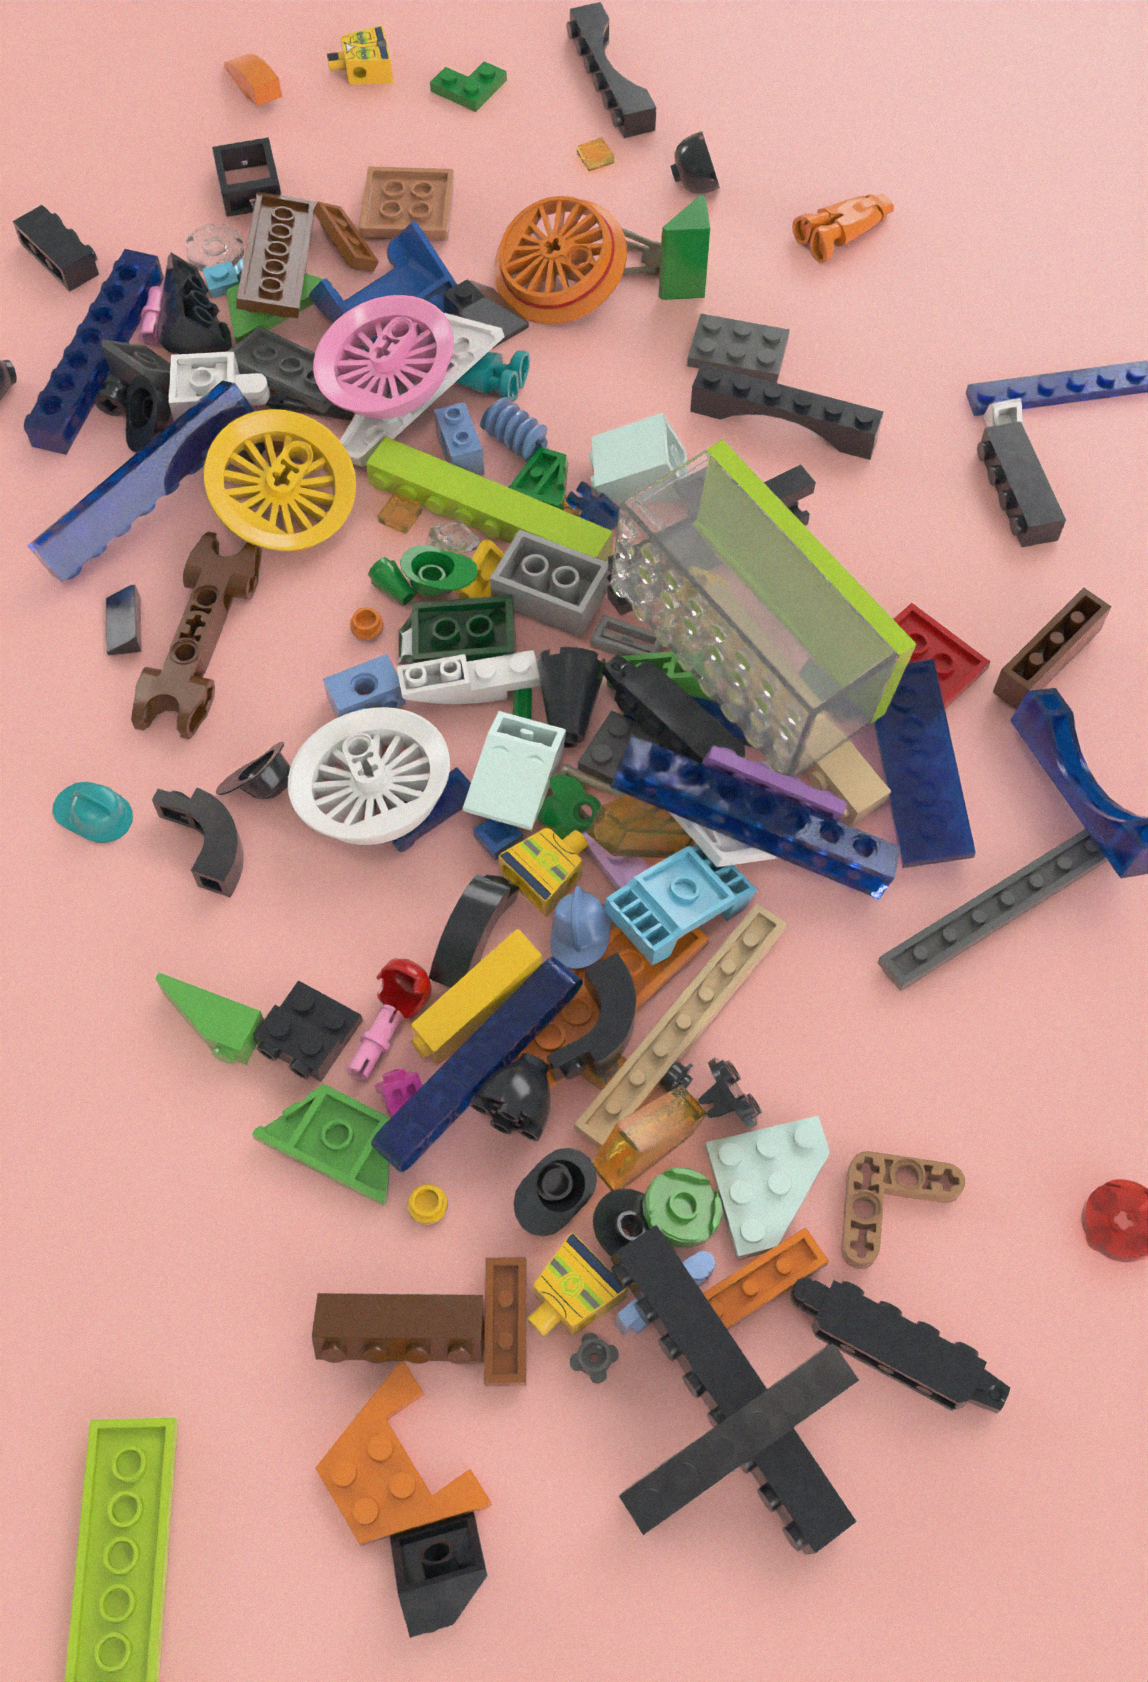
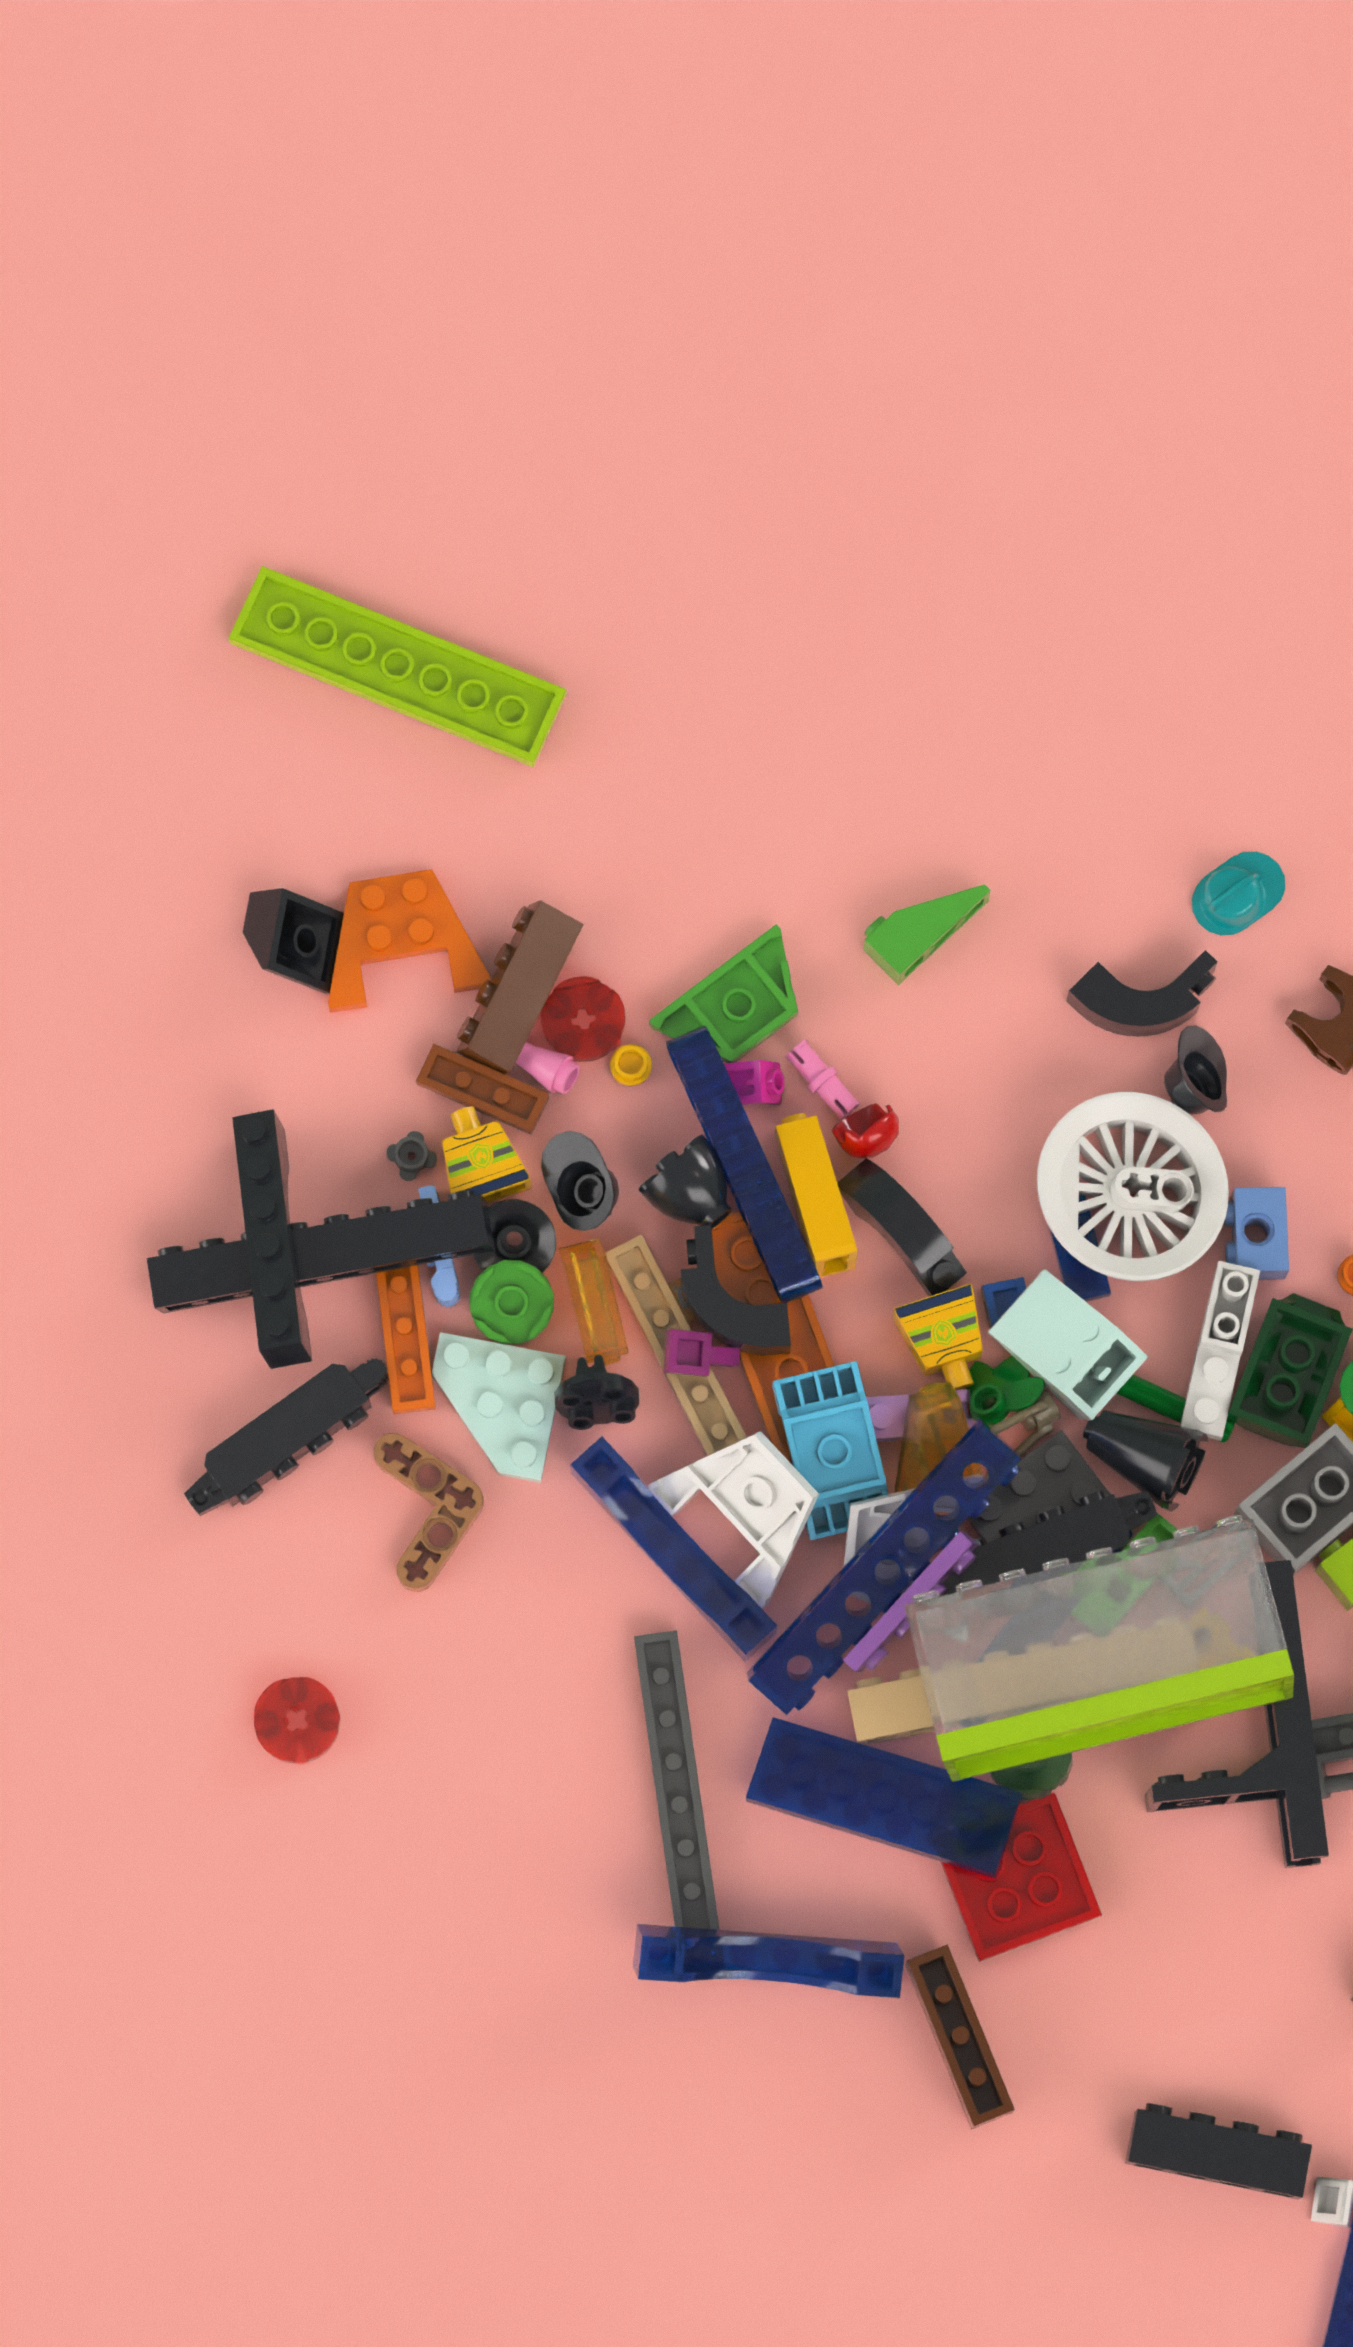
camera: 115 degrees right, 15 degrees up
(307, 1031) = (867, 1019): black plate -> none
(405, 1239) = (598, 1000): none -> clear red plate
(461, 1268) = (550, 1068): none -> bright pink cone
(579, 930) = (849, 1333): medium blue piece -> none
(655, 1032) = (692, 1353): none -> magenta plate
(676, 1076) = (642, 1357): black plate -> none
(746, 936) = (757, 1494): none -> white wing
(819, 985) = (672, 1550): none -> clear blue arch

